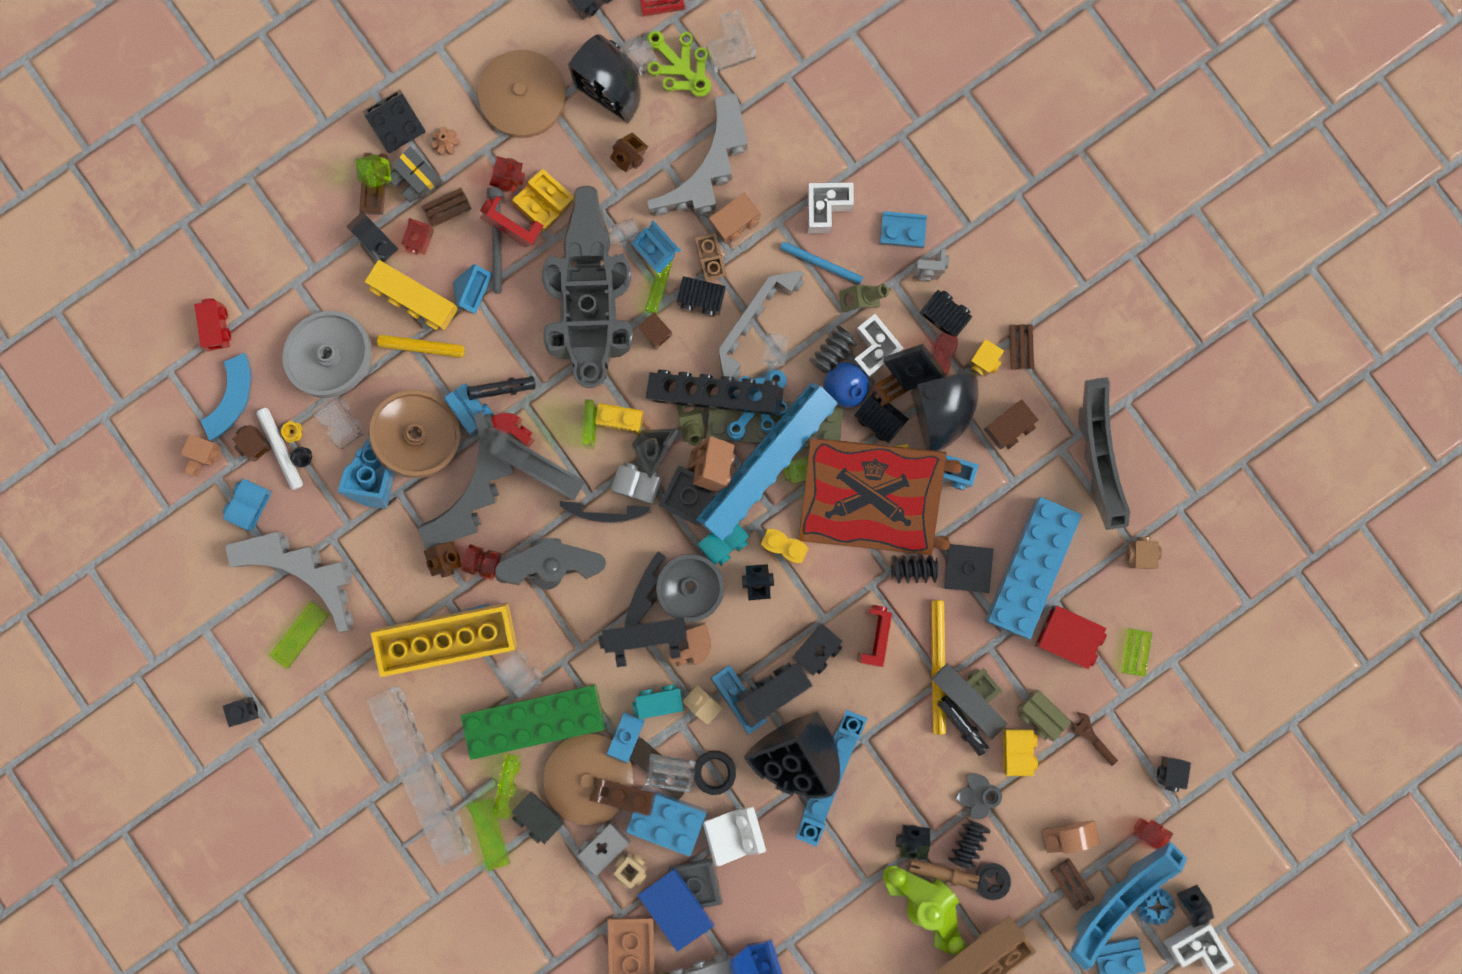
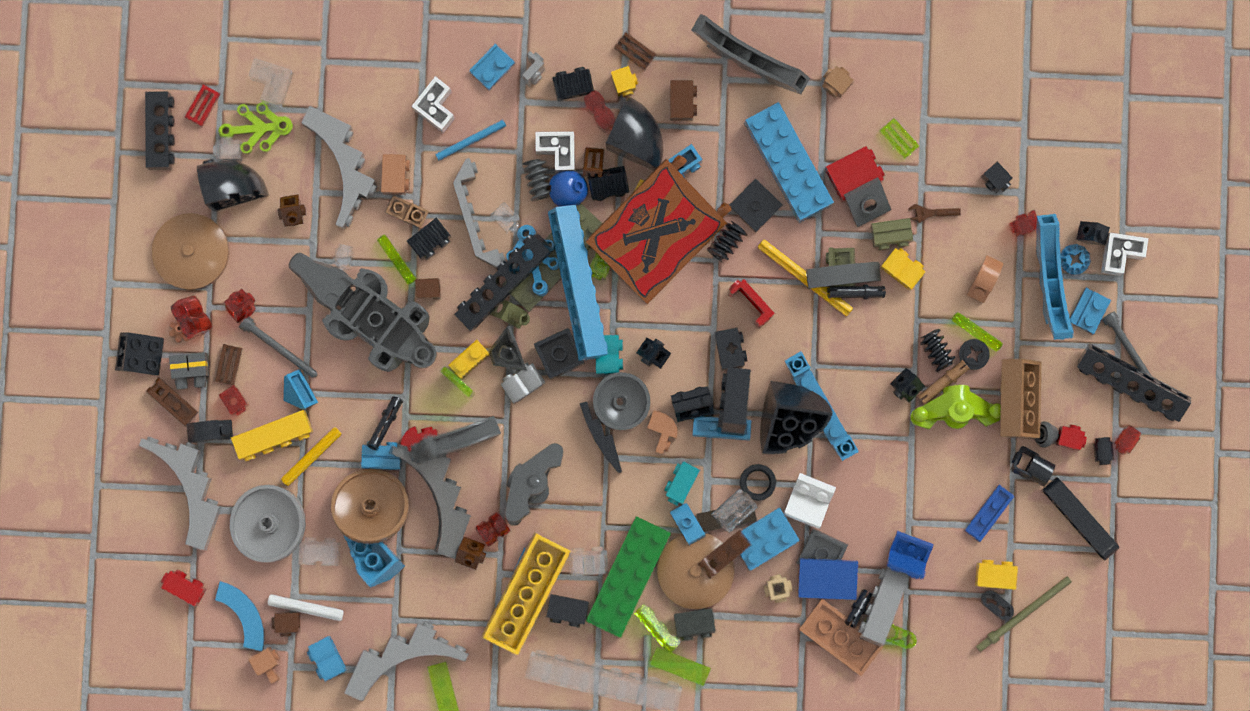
camera: 50 degrees left, 0 degrees up
(287, 427) = (295, 590): yellow plate -> none
(301, 456) = (323, 596): black plate -> none
(313, 263) = (183, 462): none -> light grey arch
(373, 170) = (167, 393): clear neon green brick -> none
(459, 689) = (568, 610): none -> black brick
(461, 140) = (191, 317): none -> clear red brick
(523, 236) = (294, 324): red panel -> none
(543, 199) = (276, 295): yellow slope -> none
(596, 859) = (755, 605): light grey brick -> none
(633, 513) = (540, 400): black slope -> none
(643, 635) = (629, 456): black brick -> none
(655, 246) = (371, 243): dark azure plate -> none
(670, 960) = (858, 608): none -> black pin
(702, 704) = (706, 454): tan brick -> none
(712, 463) = (550, 320): nougat brick -> none
(739, 655) = (692, 403): none -> black brick
(790, 549) = (649, 314): yellow brick -> none
(863, 296) = (516, 130): olive bracket -> none
(914, 366) = (592, 134): black plate -> none
(975, 796) = (909, 320): dark grey plate -> none
(1015, 867) = (977, 331): none -> clear neon green axle
(1053, 658) = (857, 197): none -> dark grey piece
(1082, 900) = (1017, 295): reddish brown tile -> none

